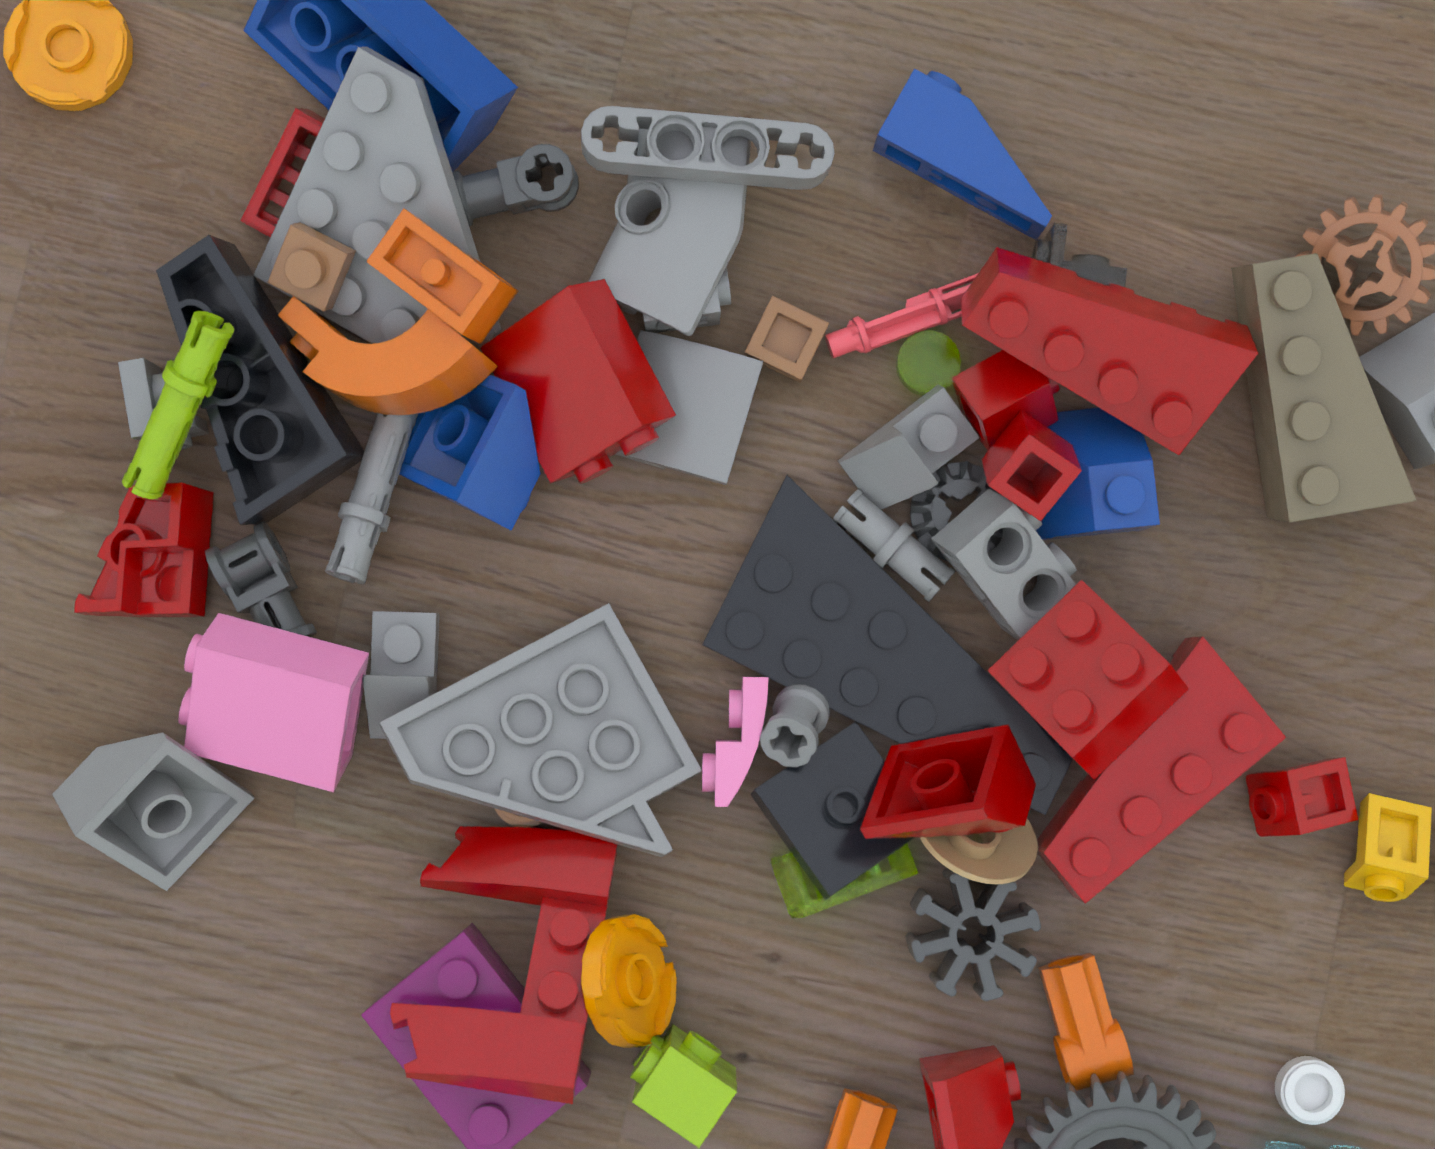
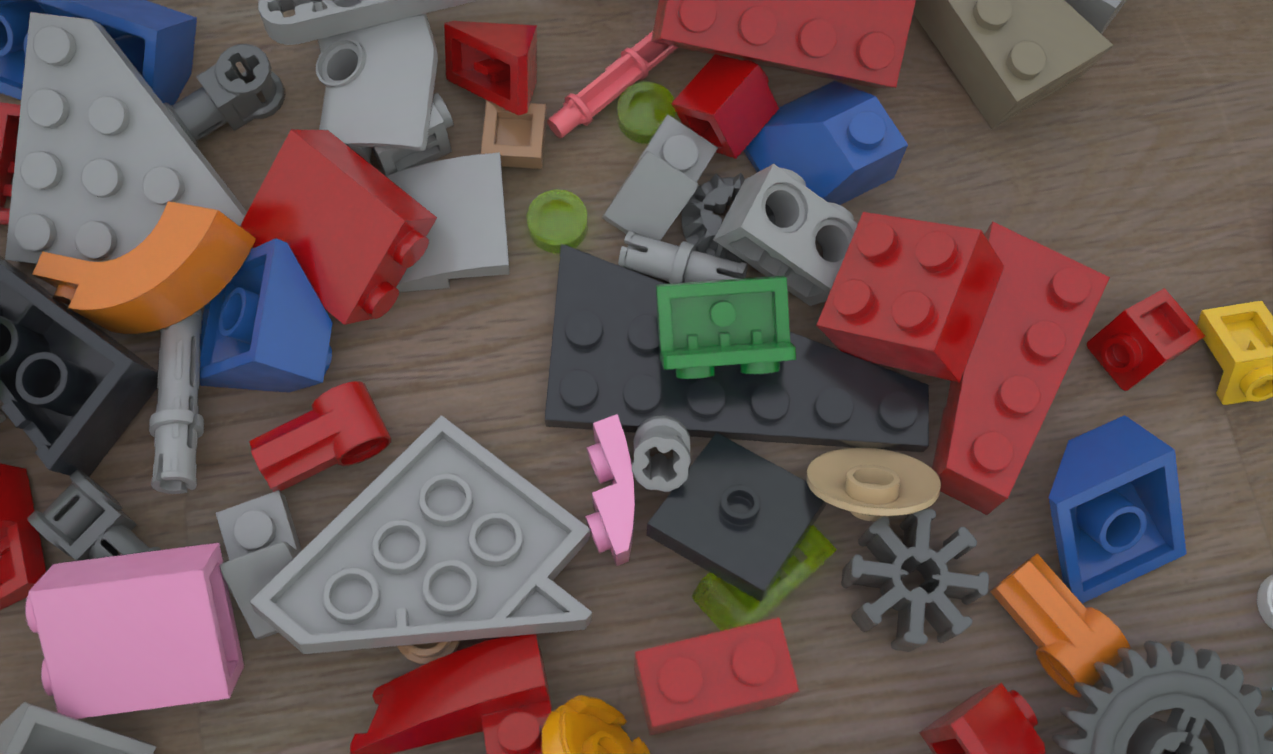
camera: 20 degrees left, 15 degrees down
(311, 266) = (51, 219): medium nougat plate -> none
(442, 276) = (173, 169): orange plate -> none
(507, 578) = (338, 430): none -> red piece
(753, 954) = (714, 676): none -> red brick
(793, 445) = (557, 219): none -> clear neon green tile
(795, 257) = (493, 61): none -> red slope
(901, 636) = (724, 325): none -> green bracket
(951, 787) = (834, 443): red slope -> none
(1030, 465) = (773, 131): red brick -> none
(1183, 943) = (1115, 508): none -> blue slope

